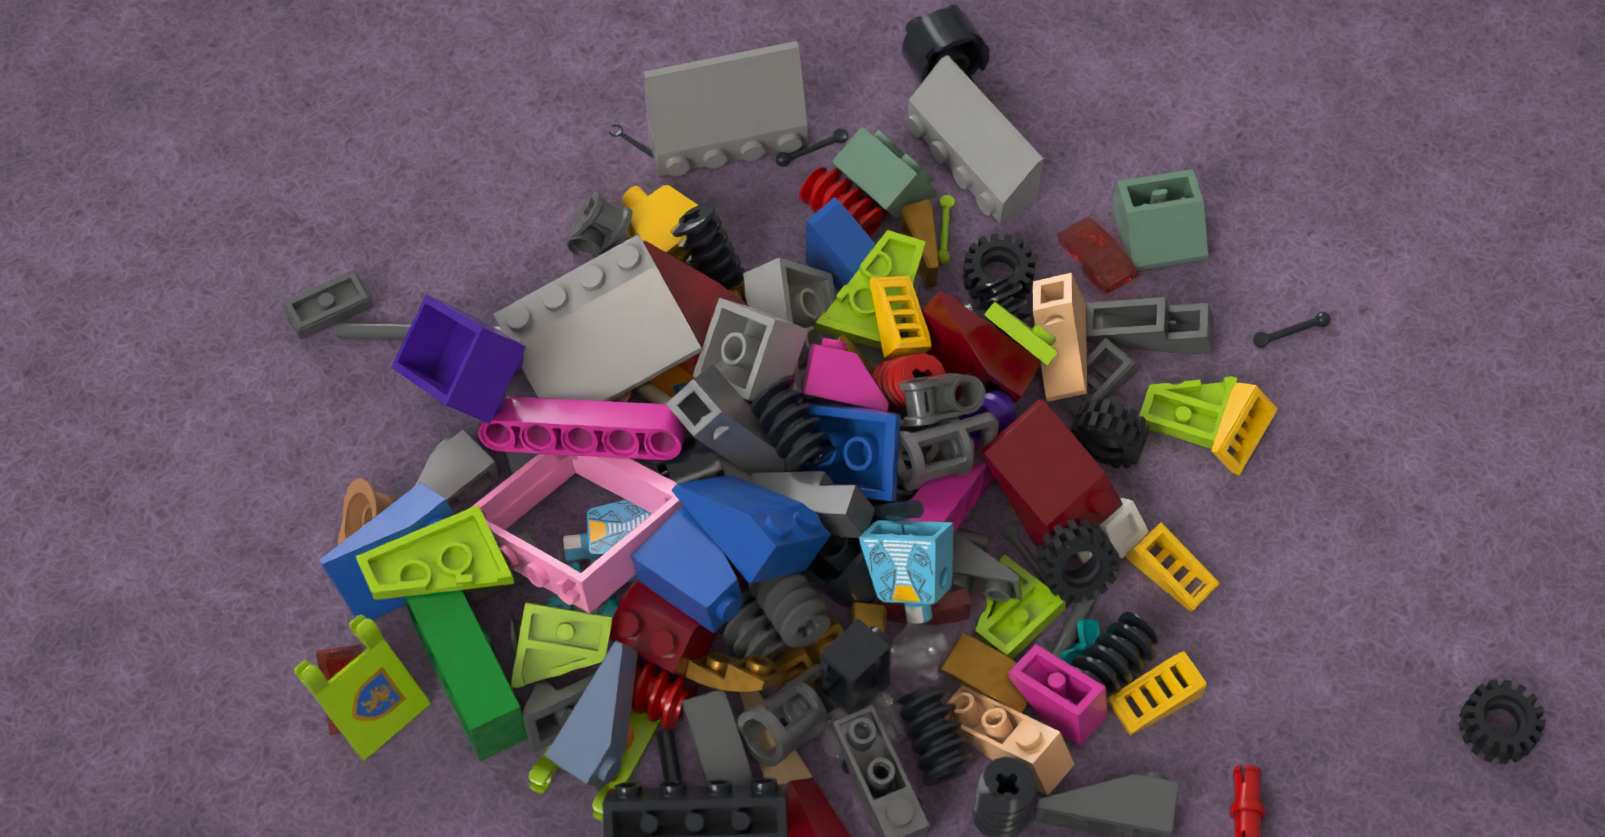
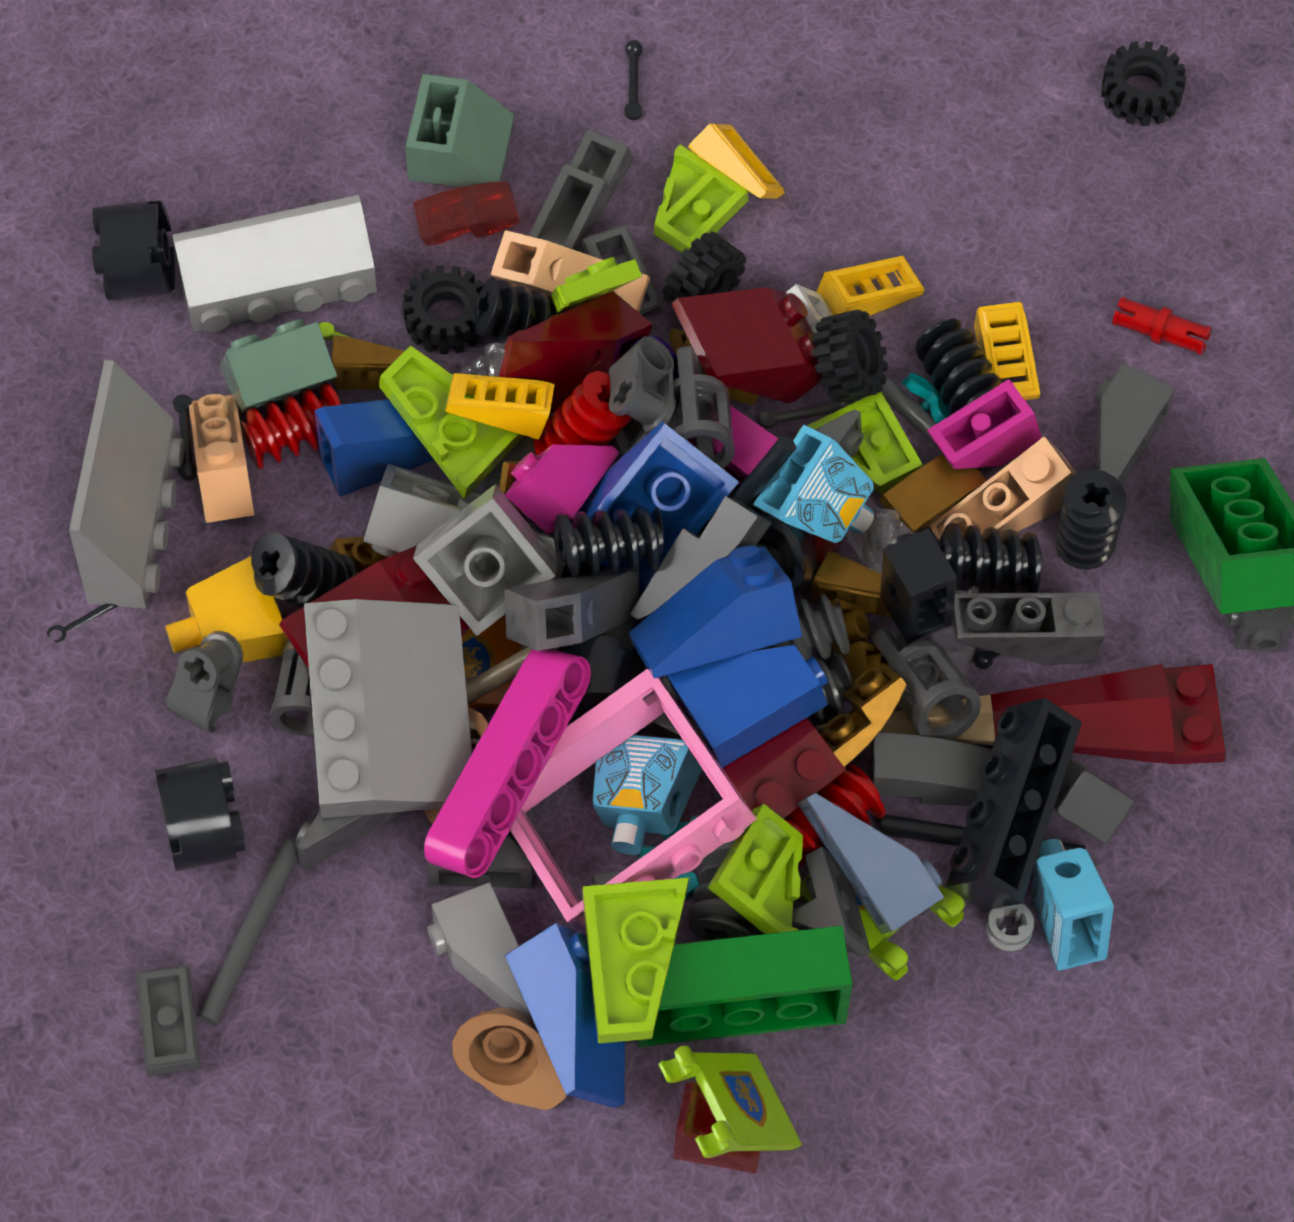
camera: 70 degrees left, 0 degrees up
(459, 359) = (361, 861): dark purple piece -> none
(484, 257) = (197, 813): none -> black brick
(779, 172) = (220, 458): none -> light nougat slope

